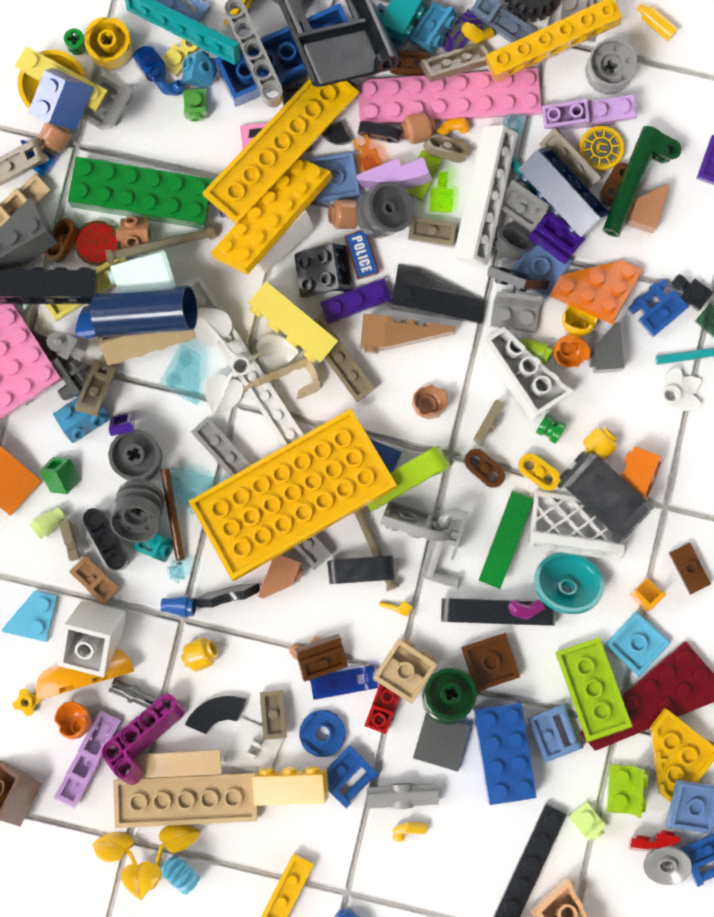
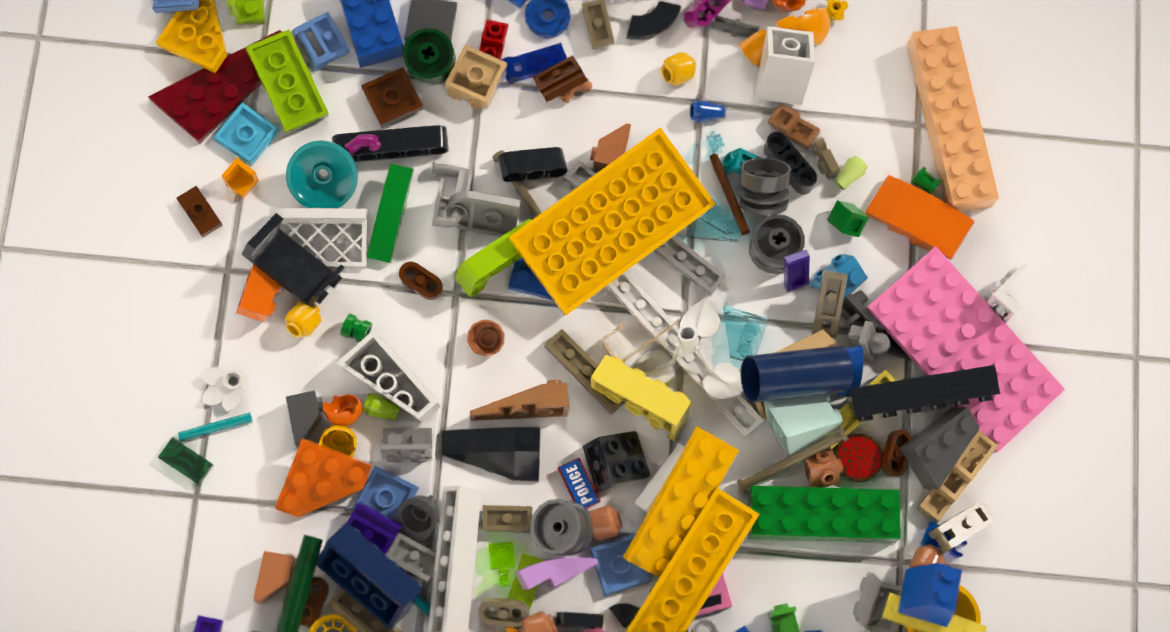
camera: 165 degrees right, 10 degrees down
(33, 617) = (844, 85): medium azure wing -> none
(228, 594) = (670, 123): black tile -> none
(356, 301) = (577, 434): dark purple plate -> none
(368, 157) = (586, 587): clear orange plate -> none
(404, 608) = (485, 135): yellow hand -> none
(489, 423) = (421, 326): dark tan plate -> none
(519, 280) = (410, 474): black wing -> none
(539, 471) = (364, 285): yellow plate -> none
(662, 313) = (248, 465): blue plate -> none
(694, 293) = (216, 492): black plate -> none

